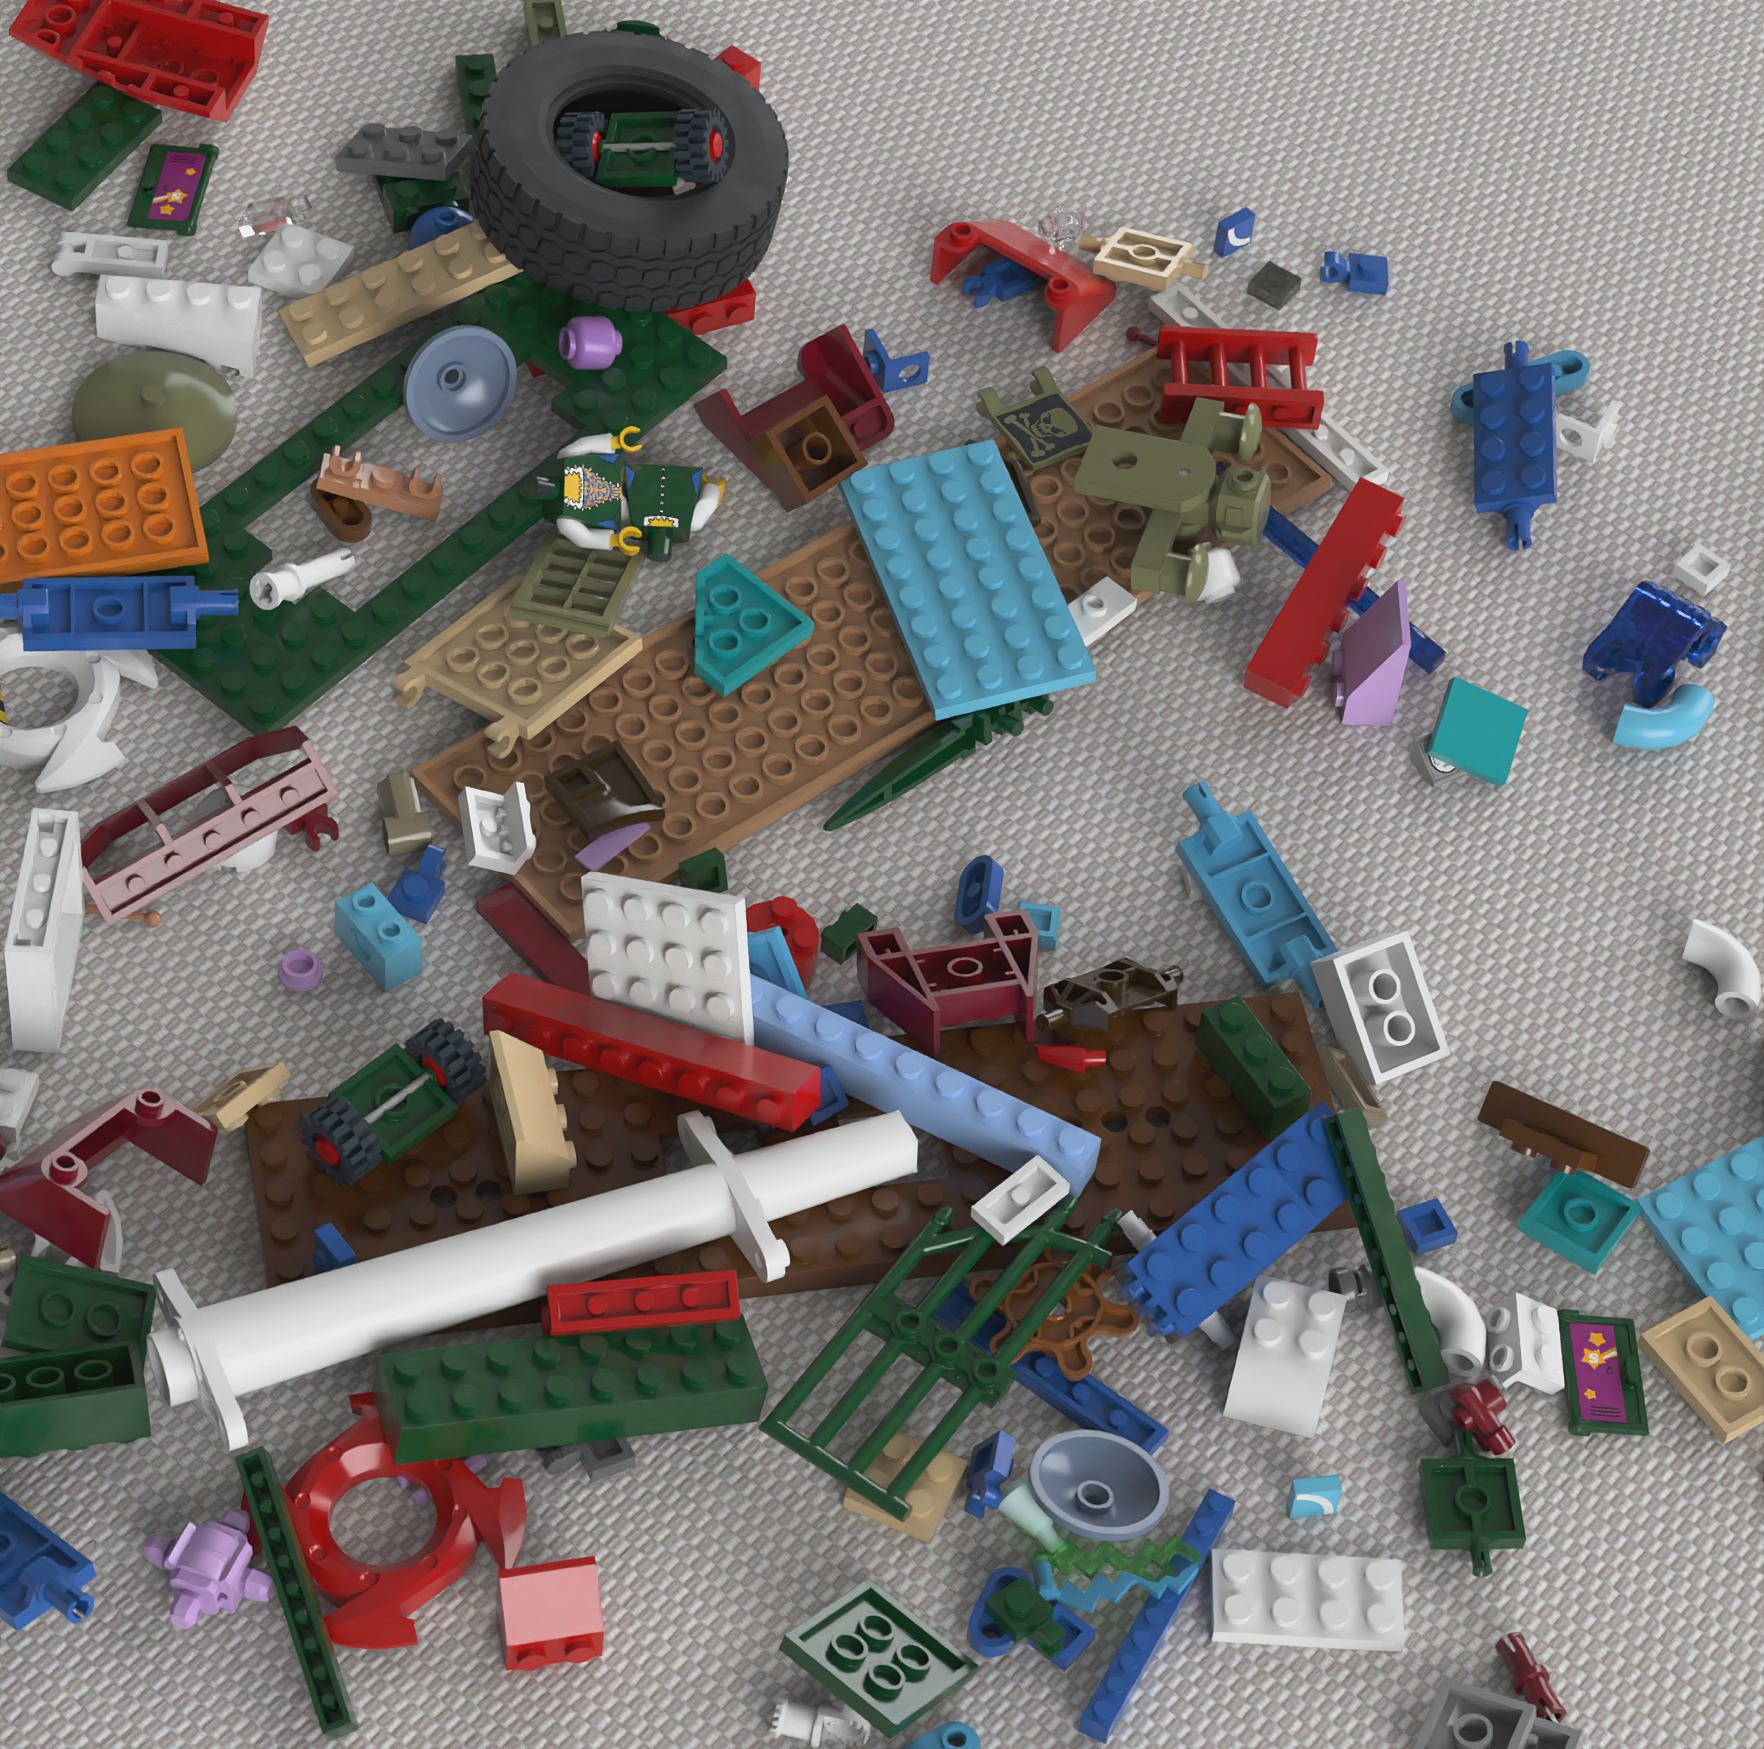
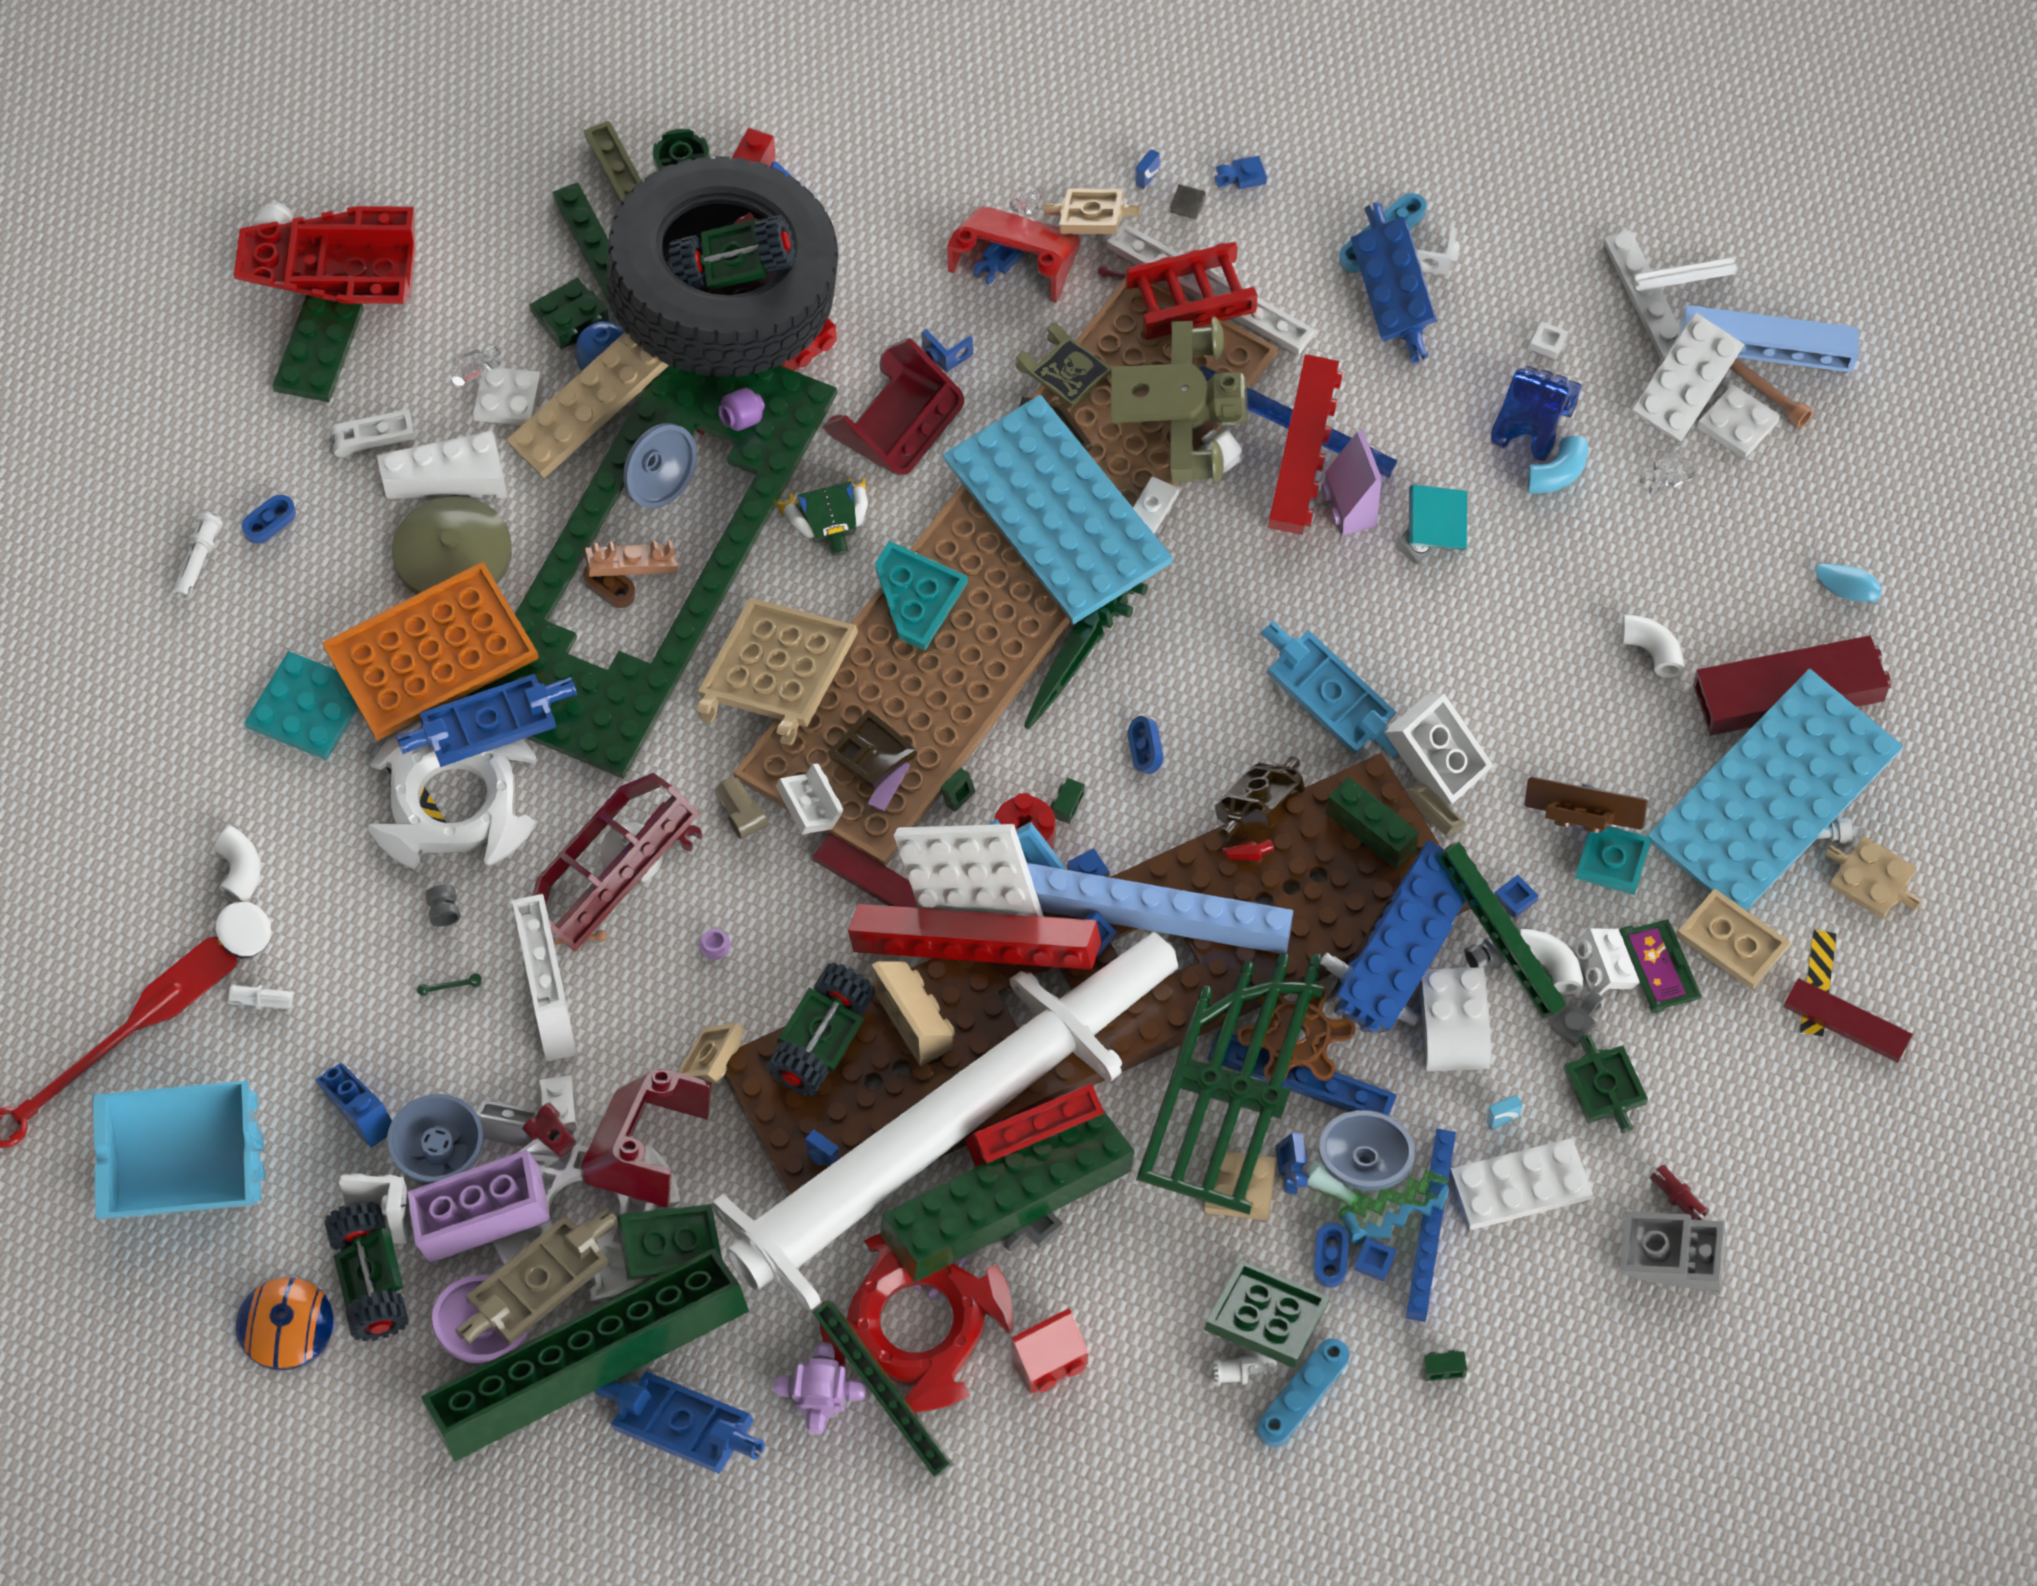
camera: 10 degrees left, 10 degrees up
(176, 186) = (395, 354): door -> none
(291, 581) = (601, 655): white pin -> none
(378, 937) = (758, 904): medium azure brick -> none
(404, 152) = (548, 286): dark grey plate -> none
(420, 891) = (770, 859): blue plate -> none
(563, 617) = (796, 629): olive piece -> none
(585, 492) = (776, 524): torso -> none
(806, 453) = (916, 445): reddish brown brick -> none
(953, 981) = (1155, 820): dark red wedge -> none
(1020, 1200) = (1254, 969): white plate -> none
(1025, 1613) = (1349, 1253): dark green plate -> none
(1046, 921) = (1189, 754): medium azure tile -> none
(1477, 1410) = (1592, 1022): dark red plate -> none

